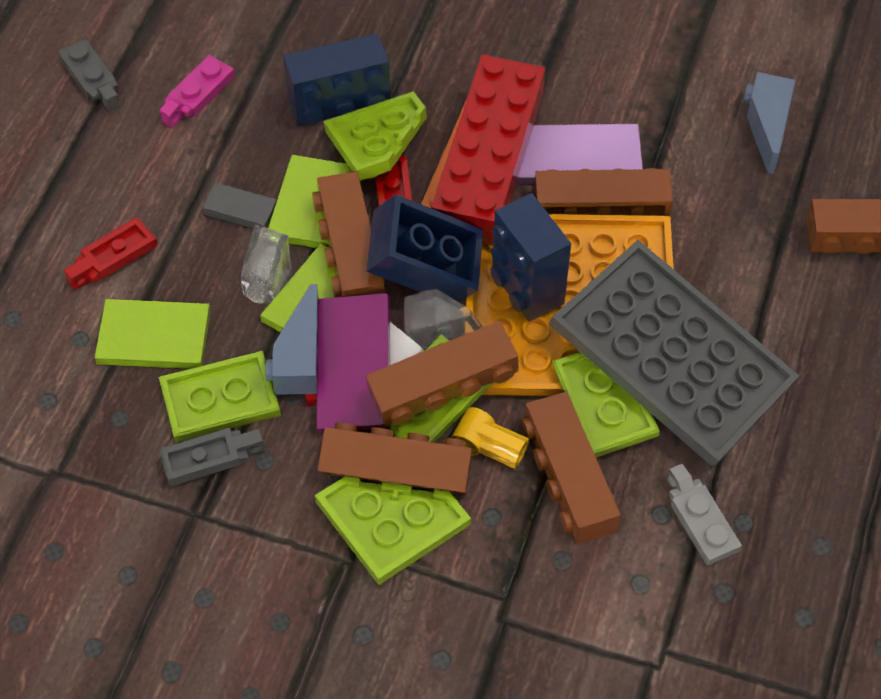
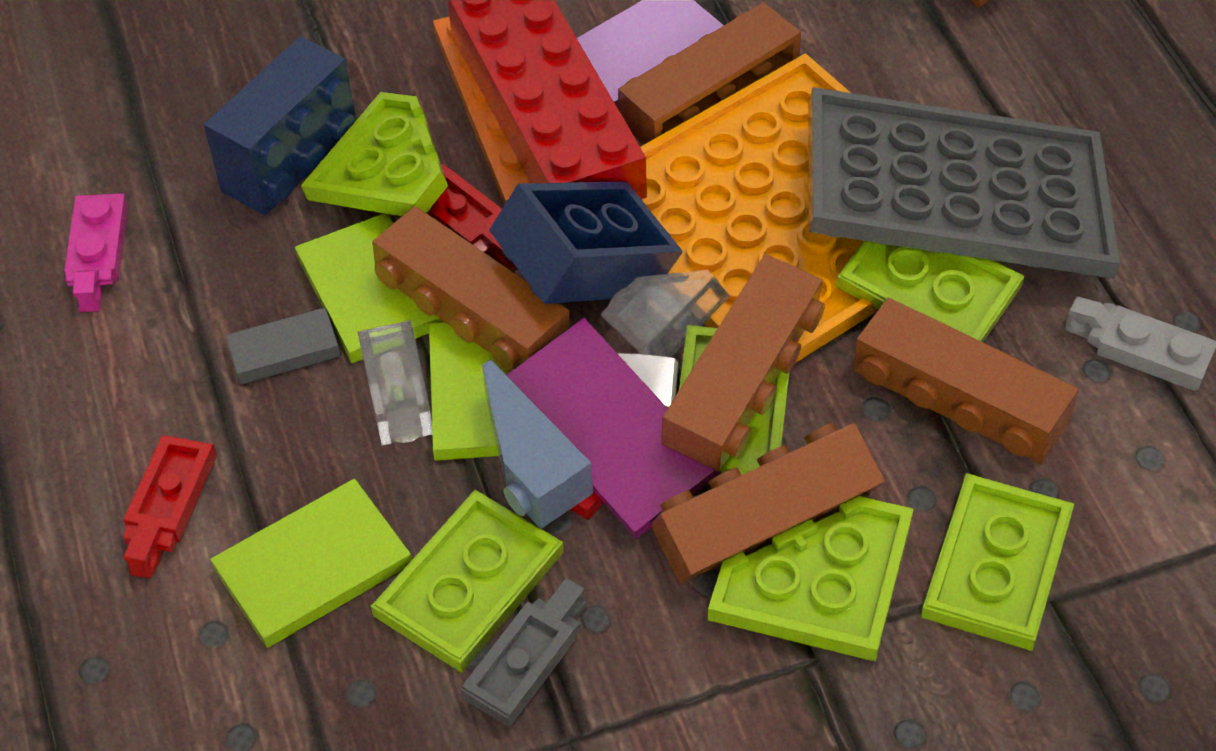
camera: 35 degrees left, 5 degrees down
(489, 438) = (867, 404): yellow piece -> none
(496, 579) = (998, 561): none -> lime tile
(530, 257) = (727, 167): dark blue brick -> none

